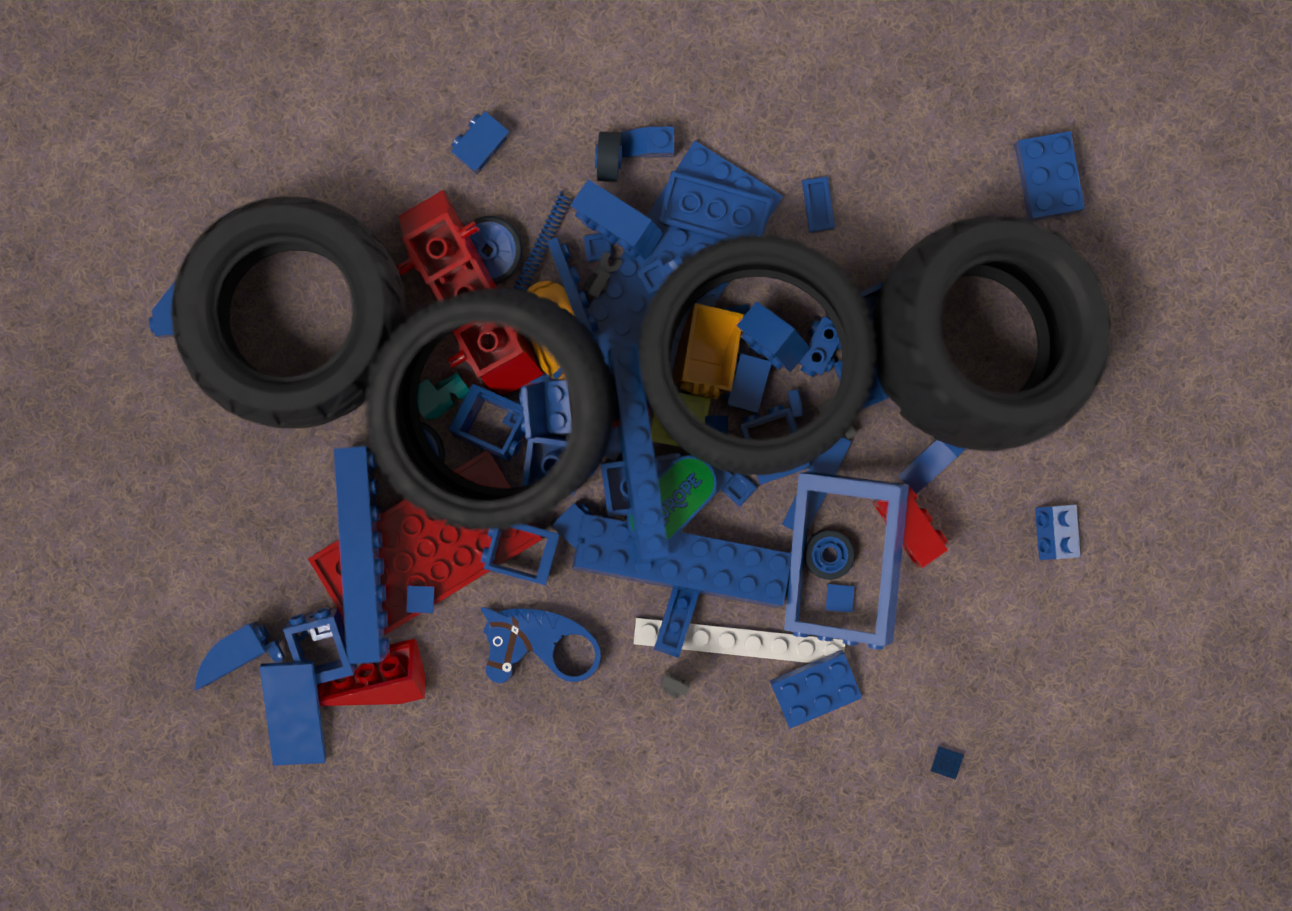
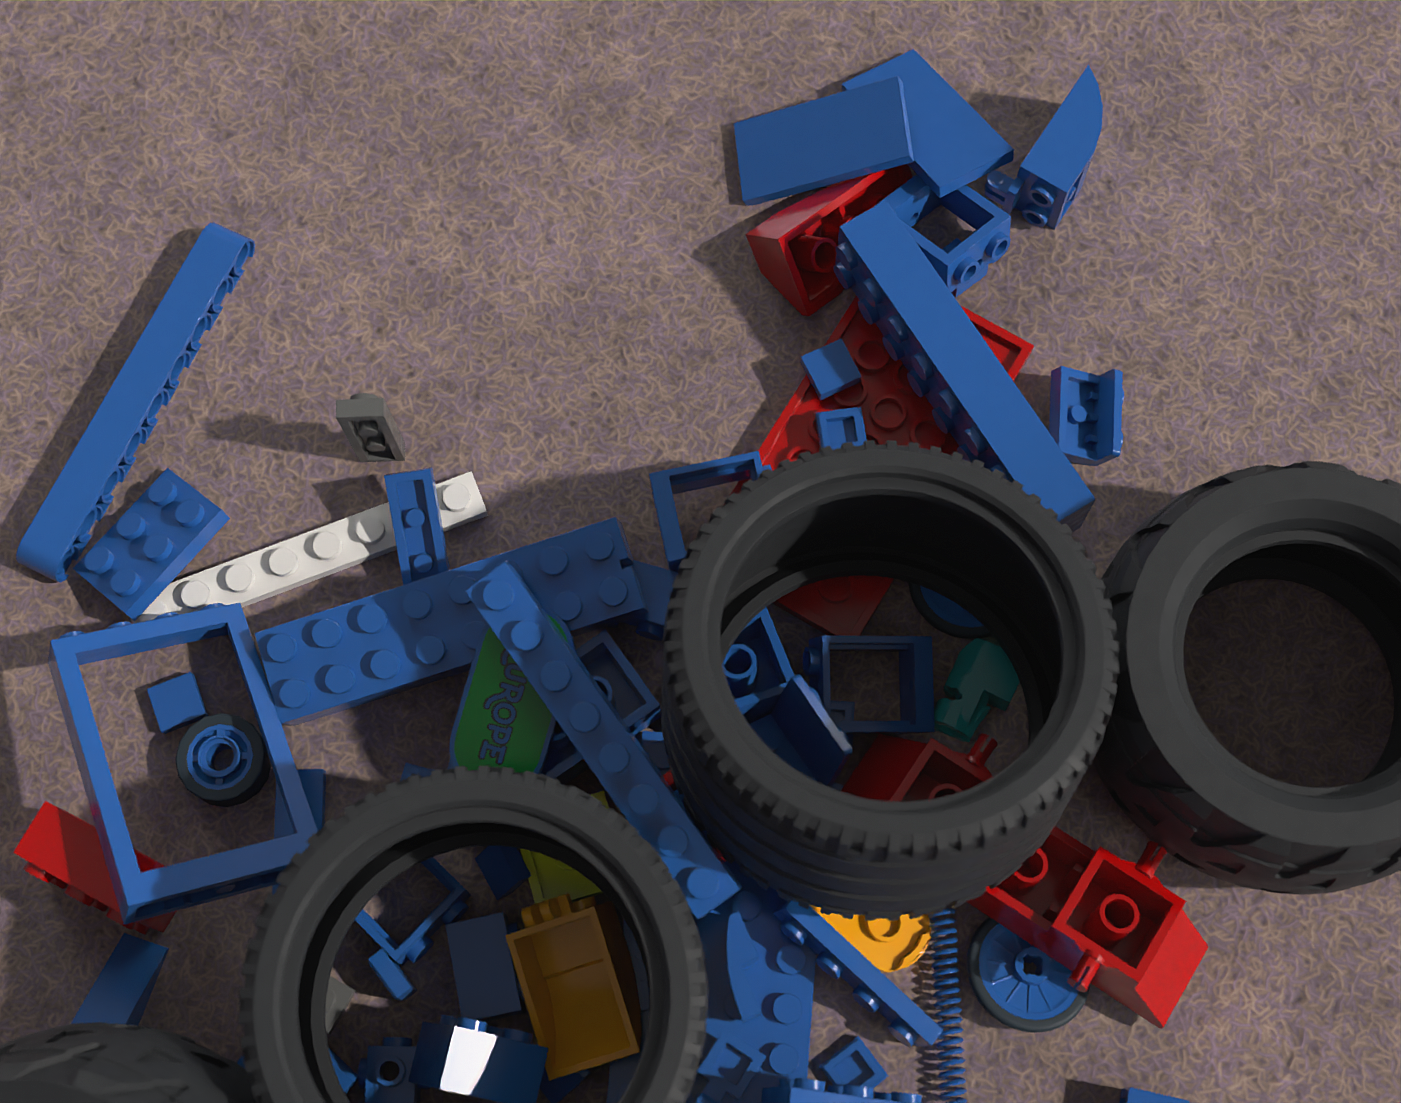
camera: 160 degrees right, 15 degrees down
(302, 507) = (1086, 414): none -> blue bracket
(355, 730) = (823, 141): none -> blue tile
(434, 561) = (840, 427): none -> blue tile
(518, 631) = (626, 414): blue animal -> none
(598, 279) = (824, 1015): dark grey plate -> none
(624, 325) = (741, 954): none -> blue slope
(788, 777) = (133, 401): none -> blue beam

